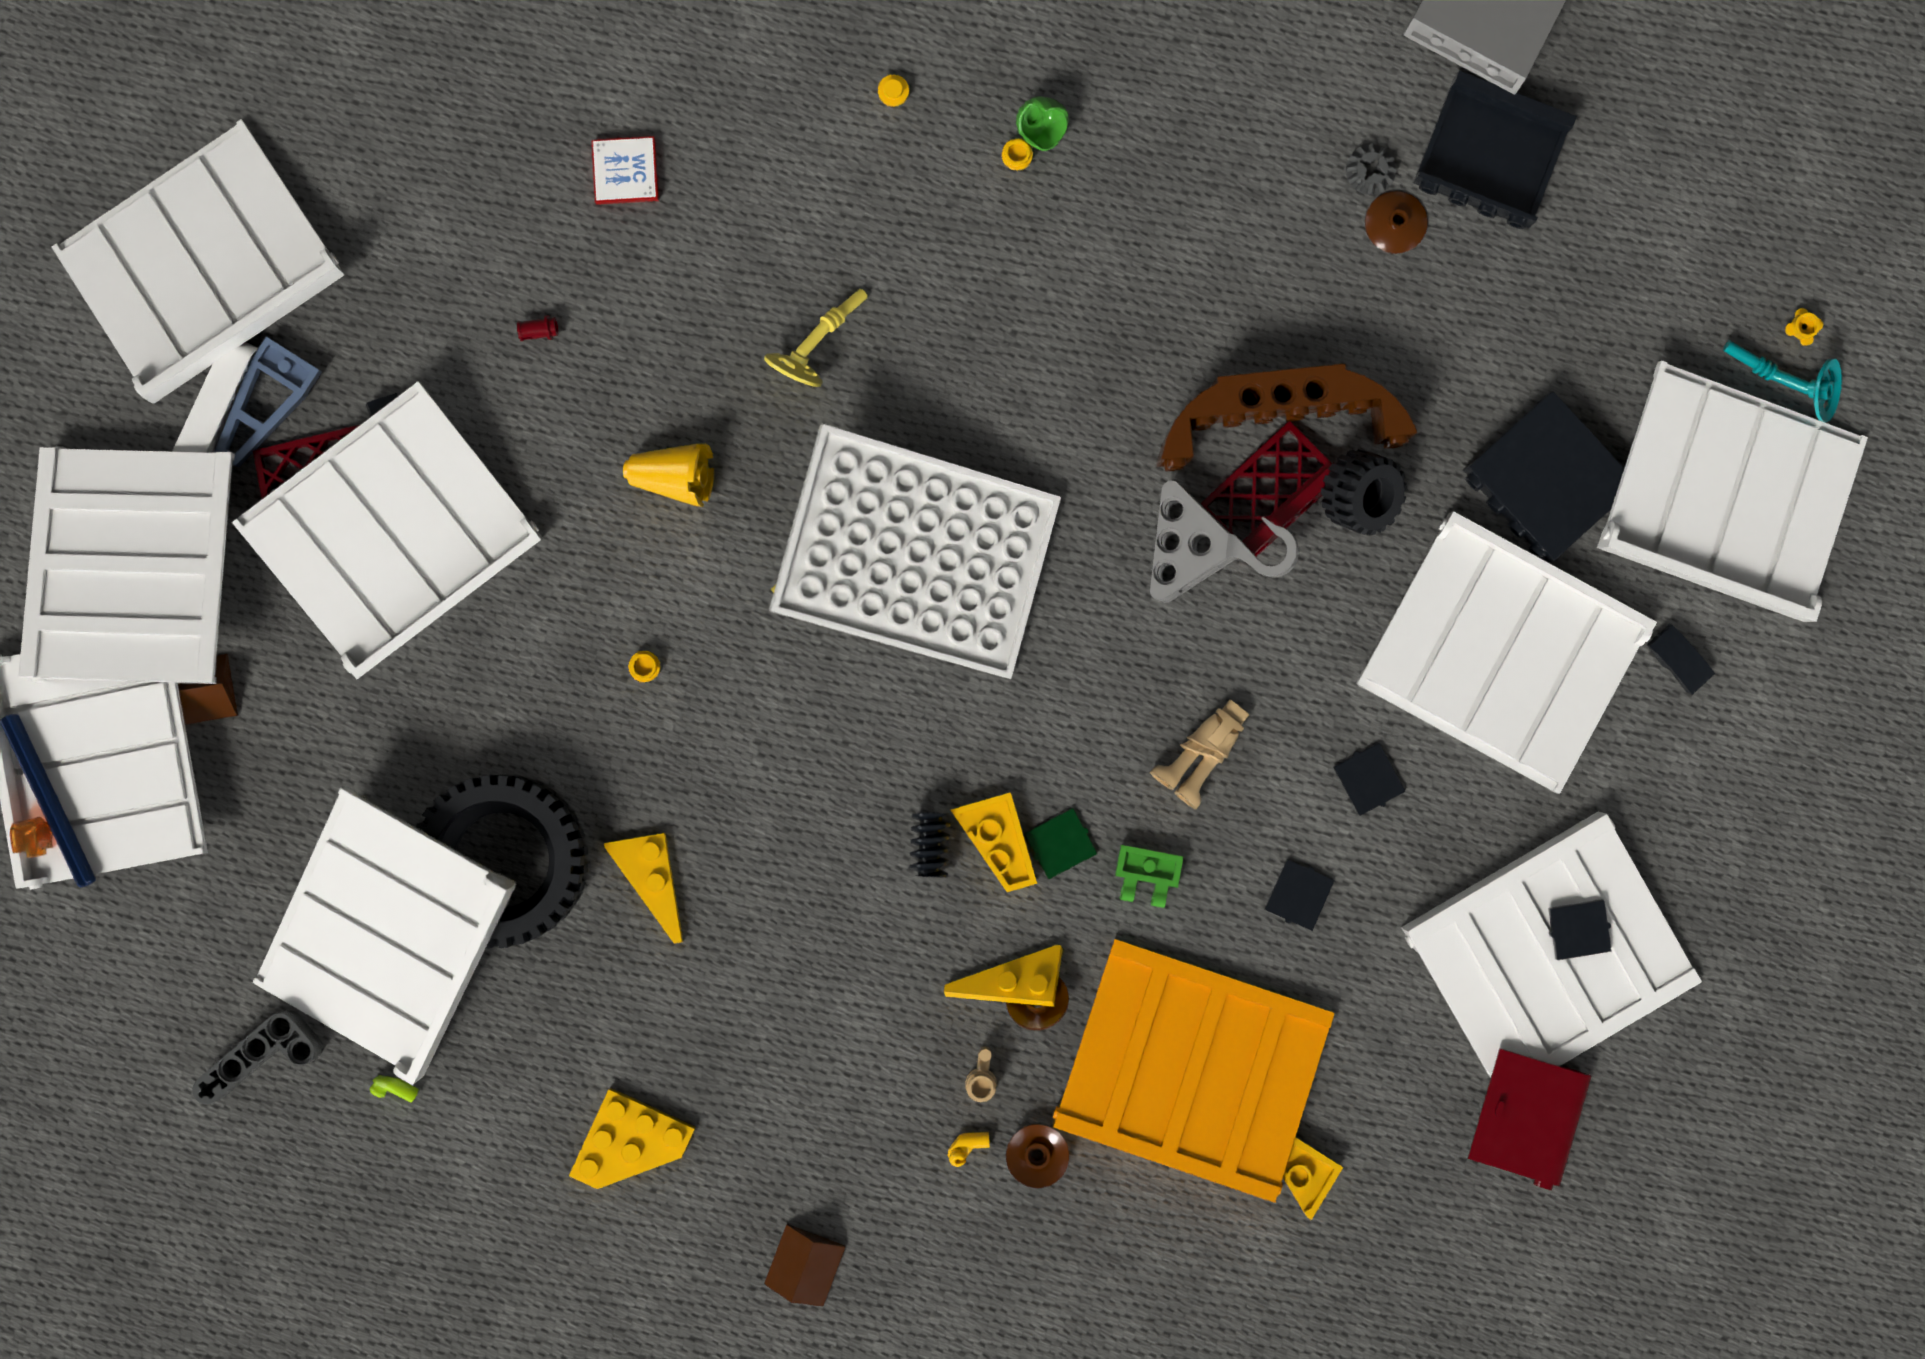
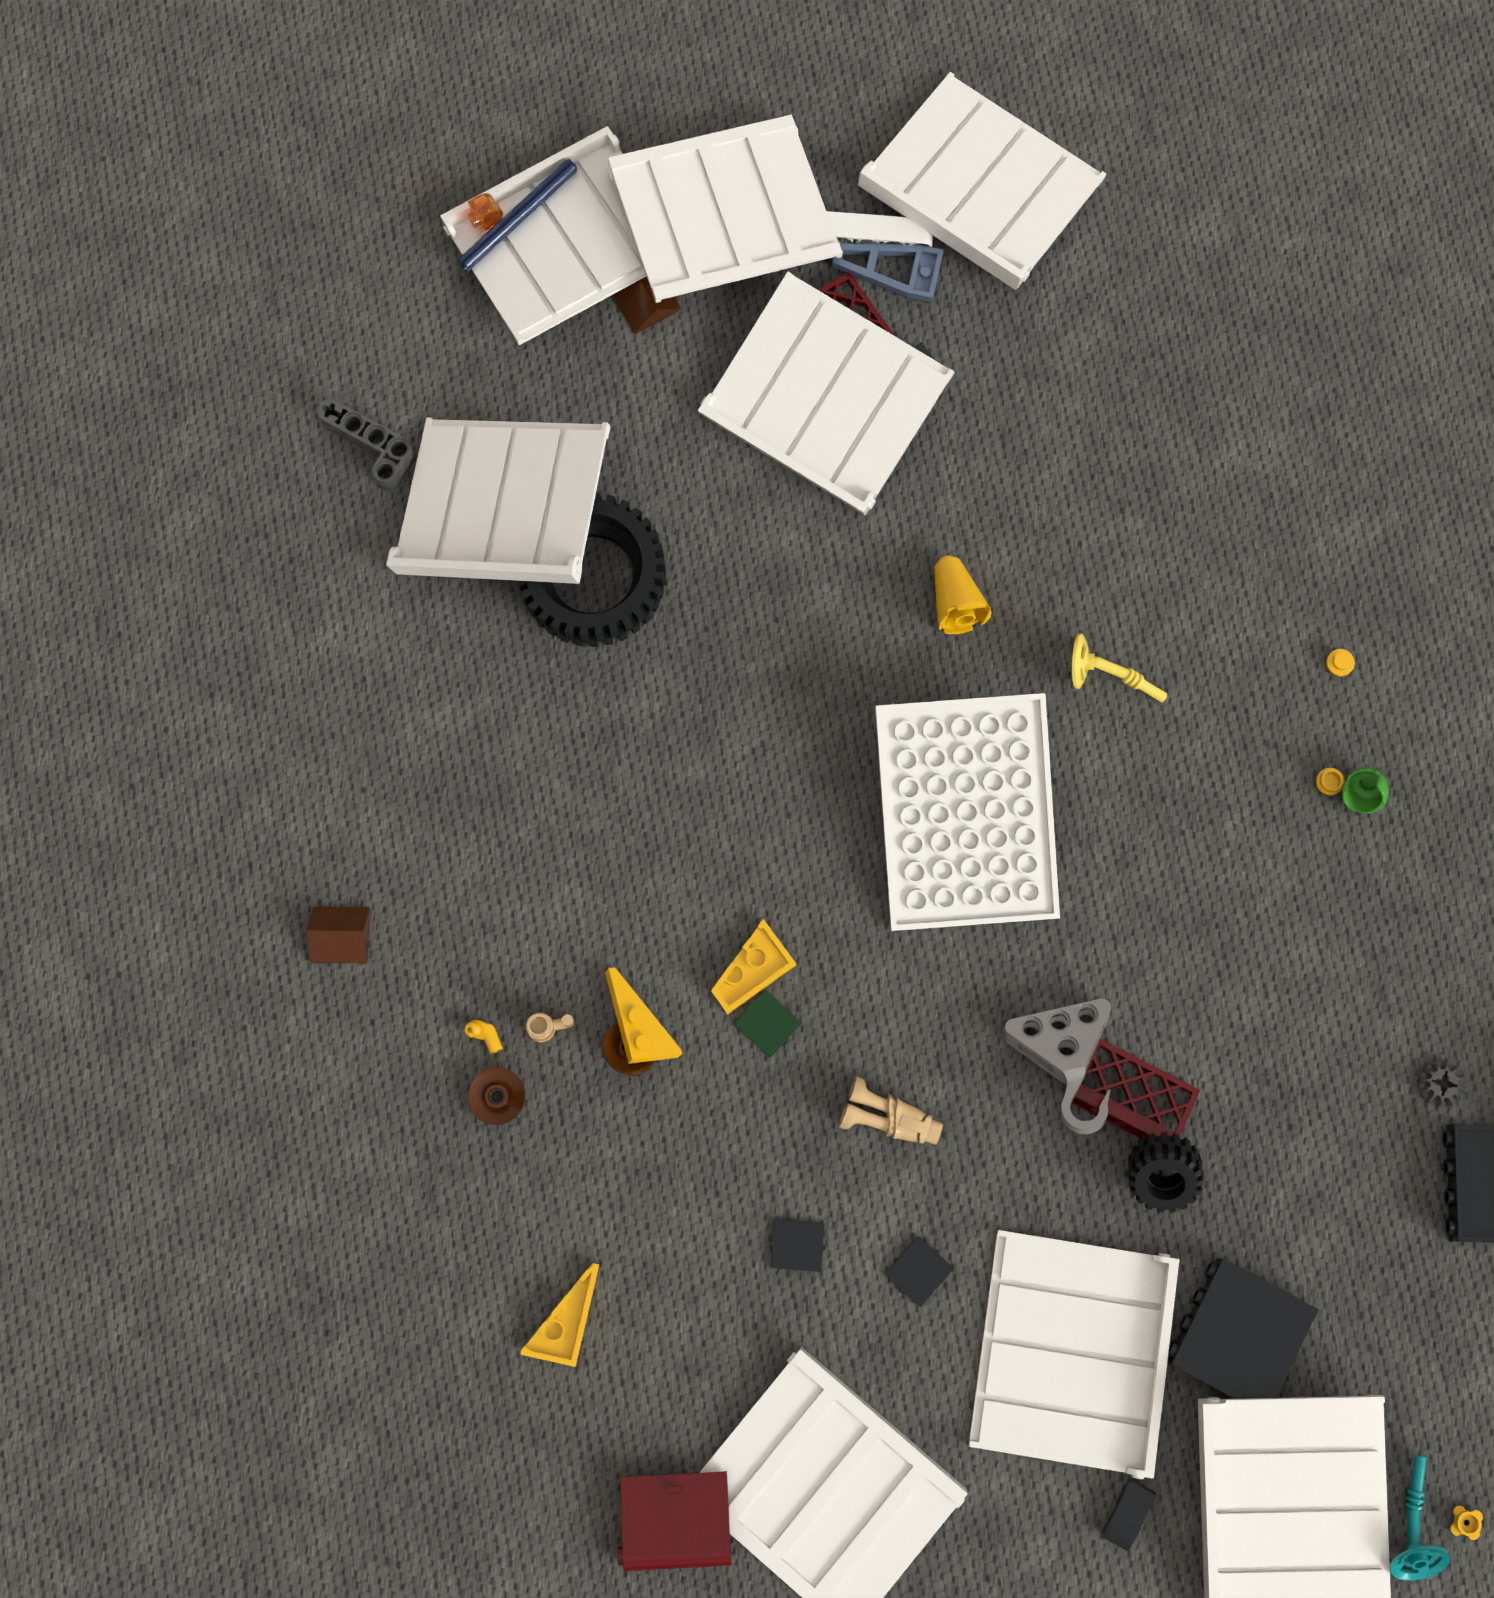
camera: 70 degrees right, 10 degrees down
(393, 1085) = (380, 554): lime arm -> none
(538, 328) = (1032, 453): dark red pin -> none
(625, 170) = (1186, 475): white tile -> none
(628, 1141) = (397, 754): yellow plate -> none
(644, 666) = (790, 630): yellow plate -> none
(649, 871) = (624, 693): yellow wing -> none
(930, 844) = (729, 911): black piece -> none
(1149, 867) = (775, 1105): bright green plate -> none
(1193, 1070) = (615, 1206): light orange container -> none
(1334, 391) = (1244, 1116): reddish brown slope -> none
(1388, 235) = (1393, 1127): reddish brown dish -> none
(1579, 929) = (856, 1506): black piece -> none

